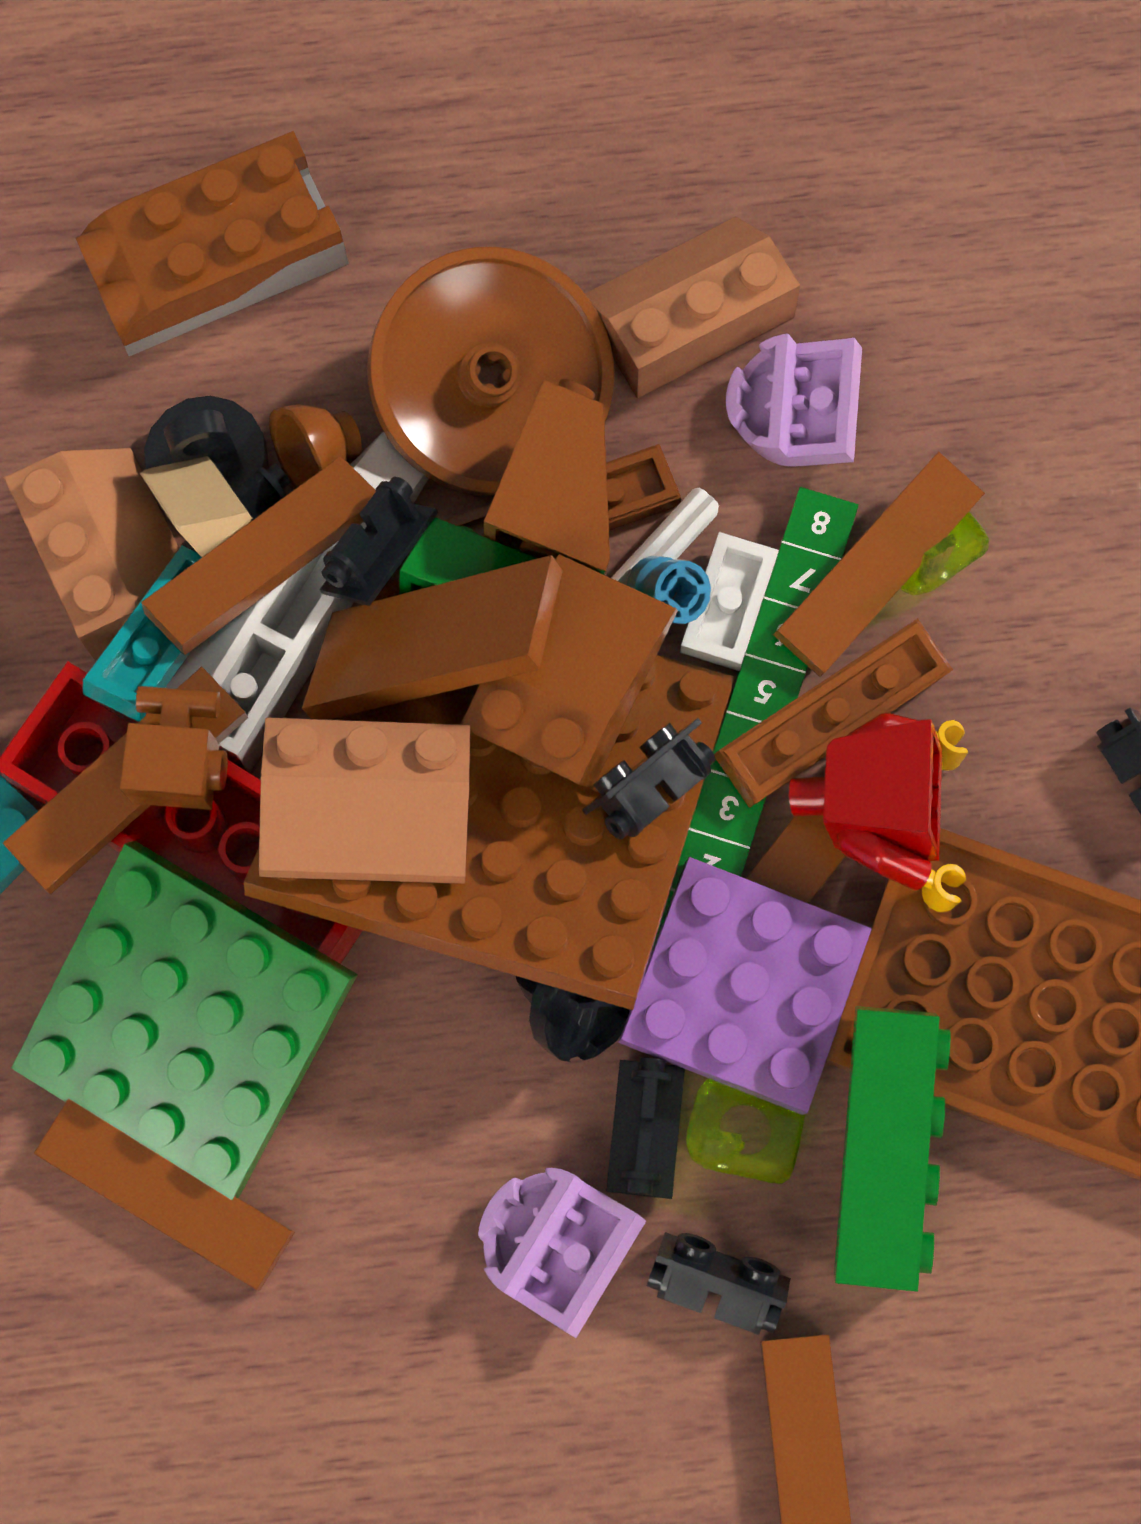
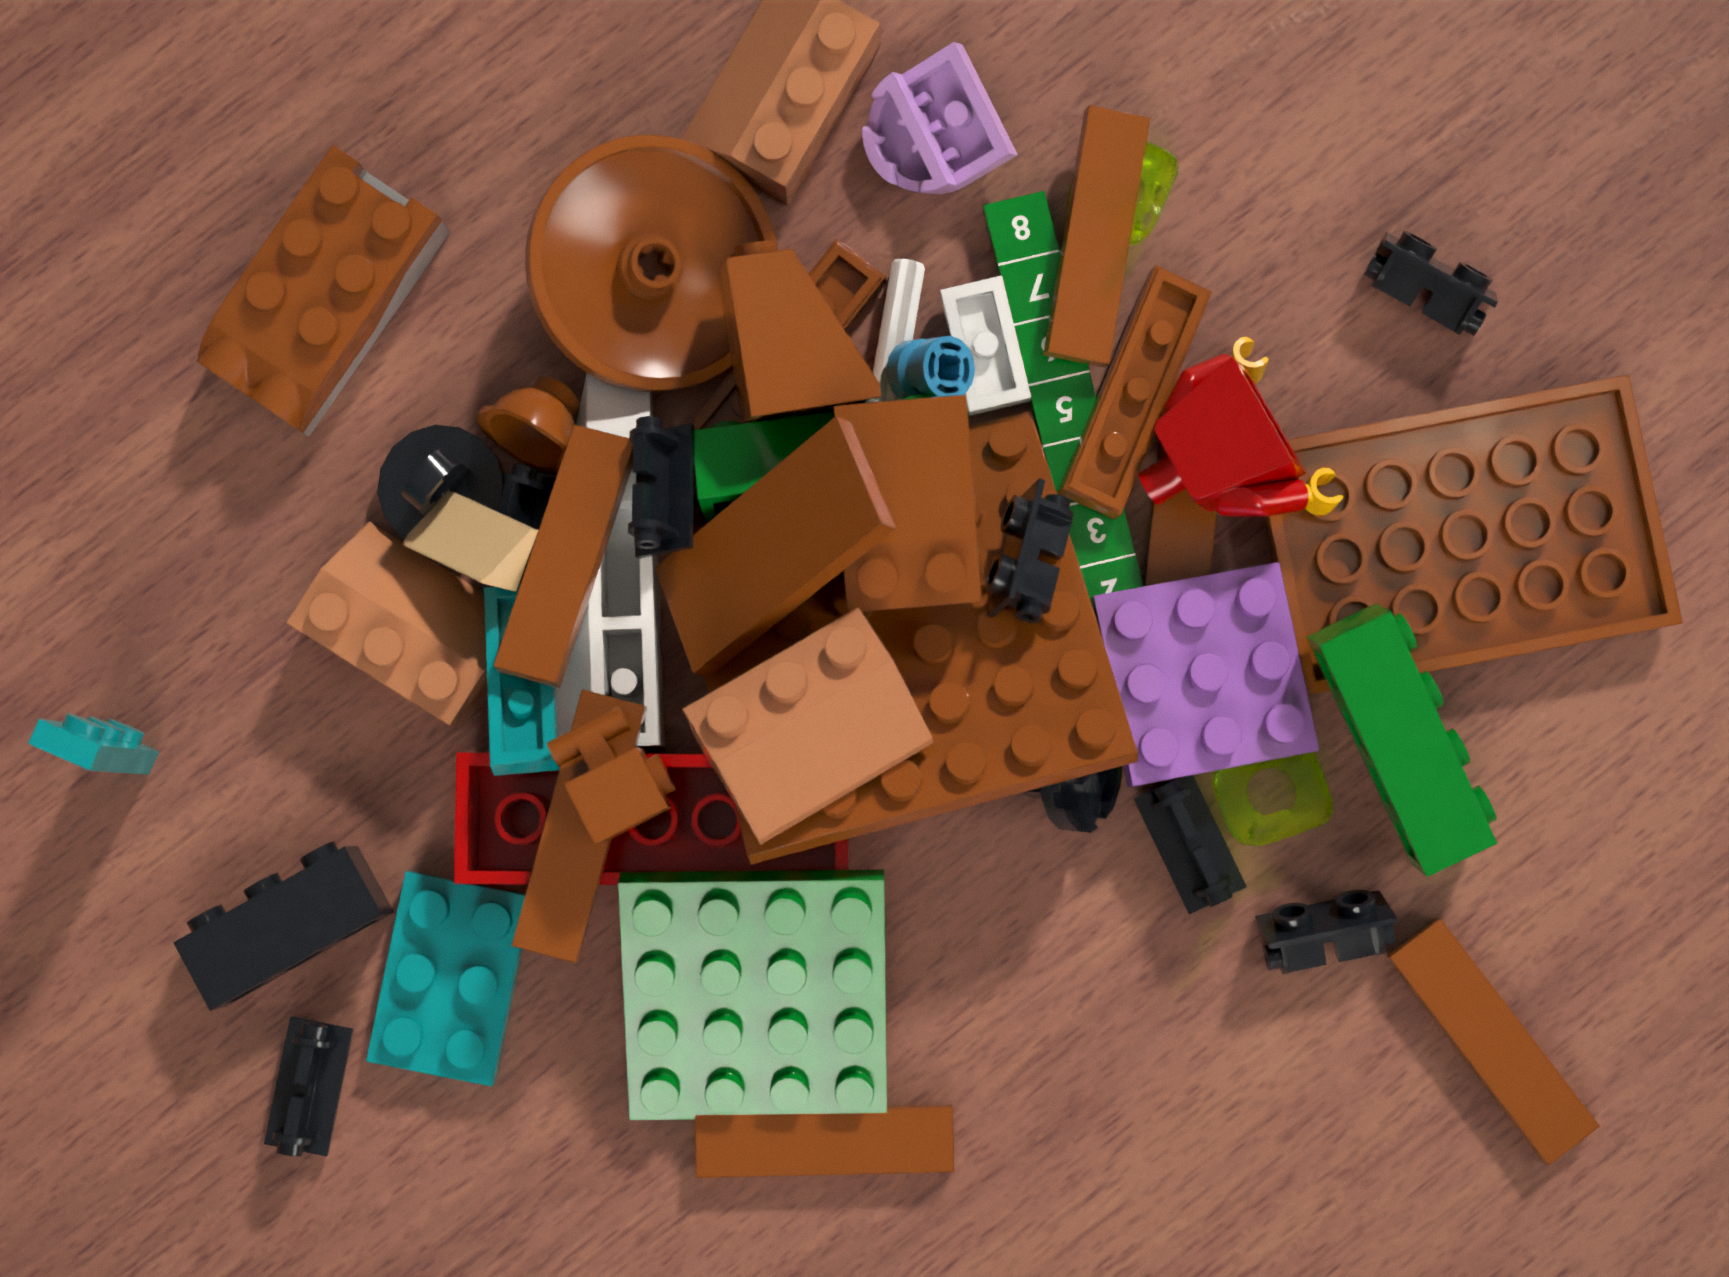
camera: 30 degrees left, 10 degrees up
(555, 1244) = (1176, 984): lavender slope -> none

